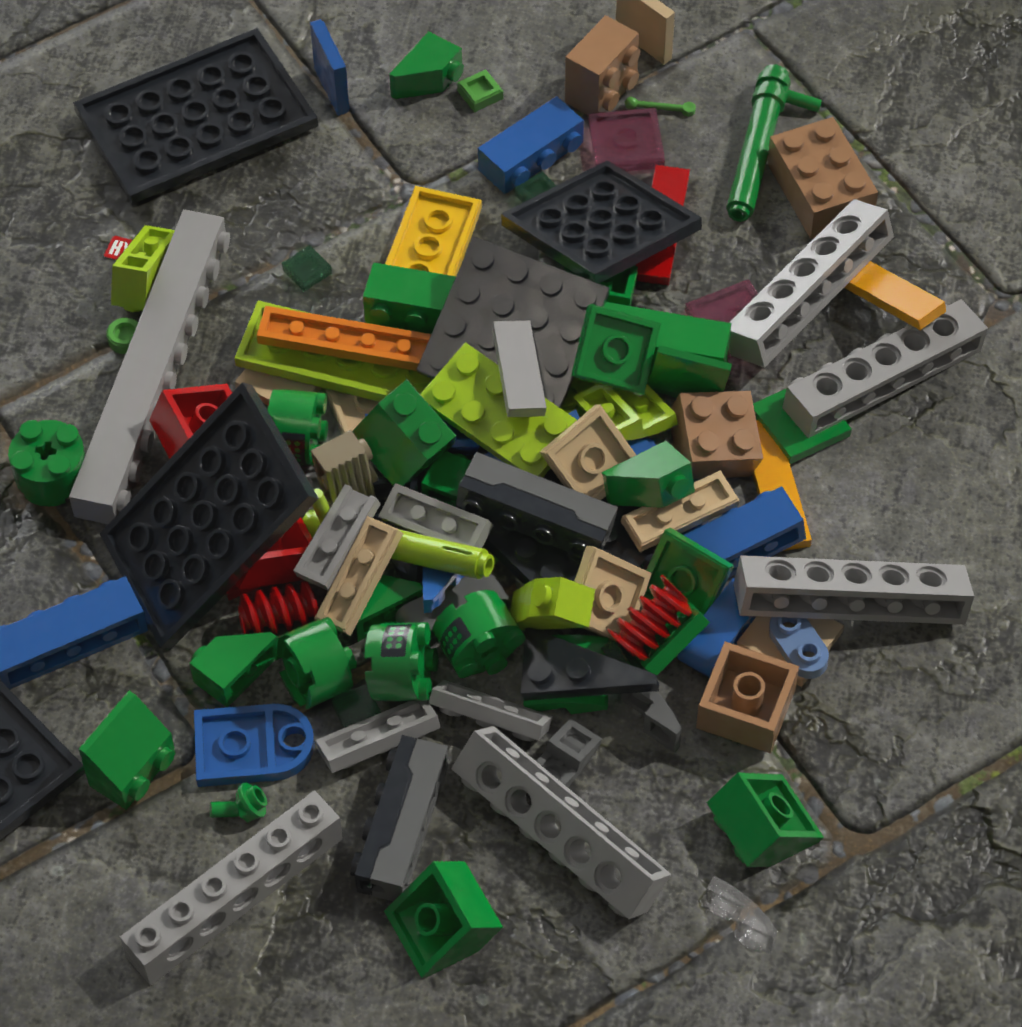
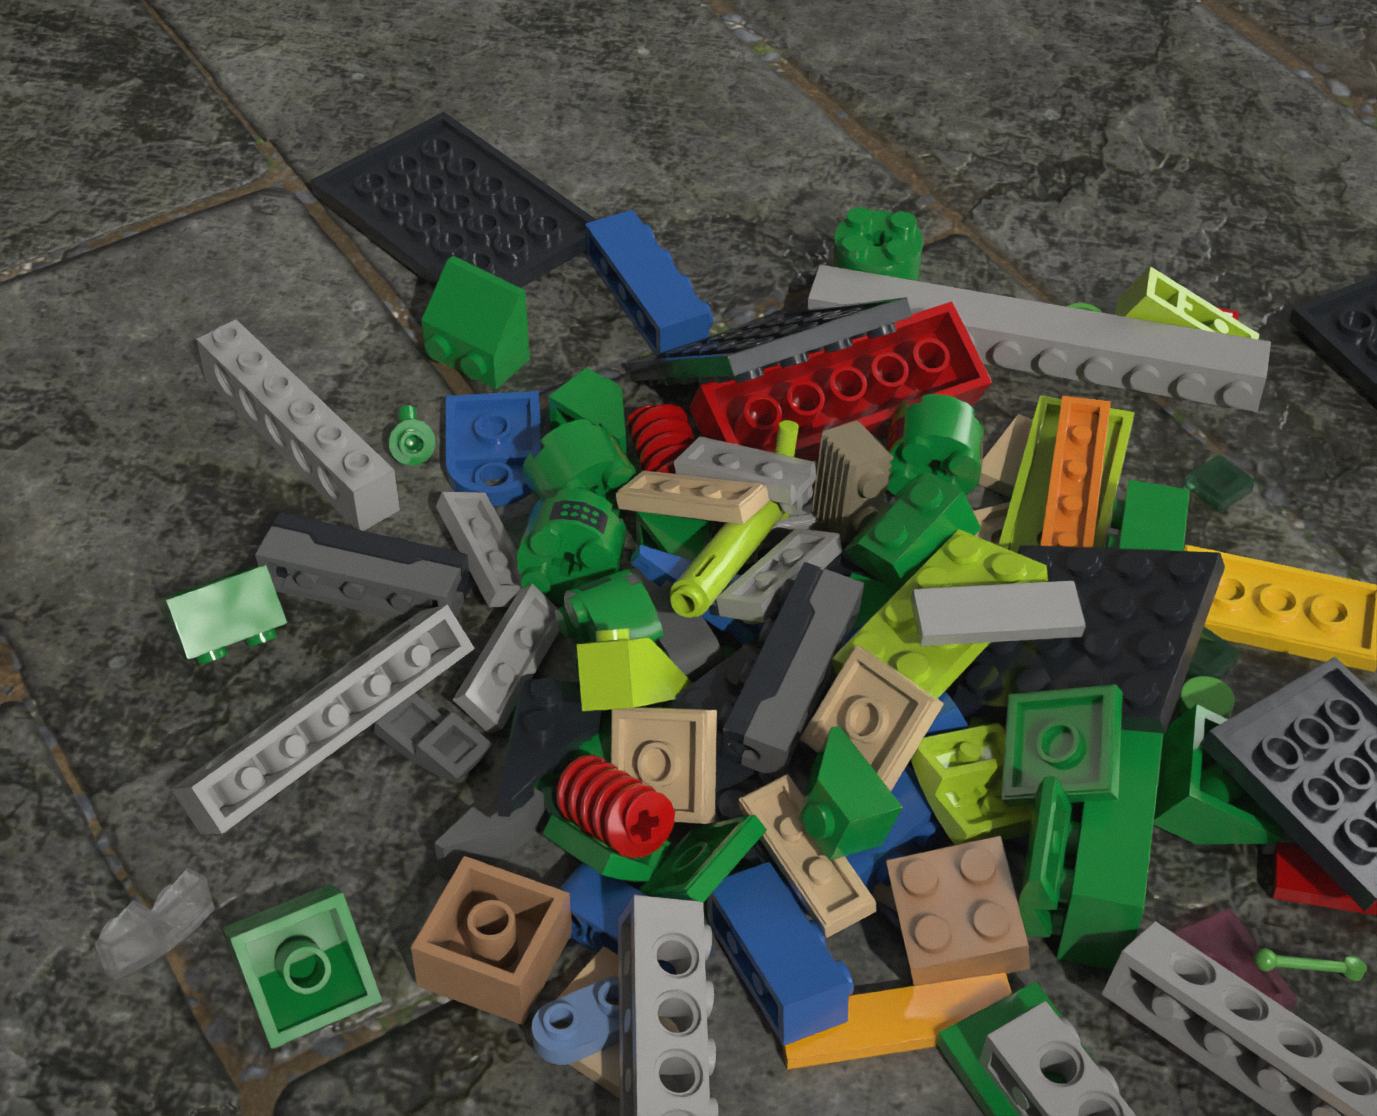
camera: 90 degrees right, 10 degrees down
(720, 252) = (1351, 967): none -> bright green hinge

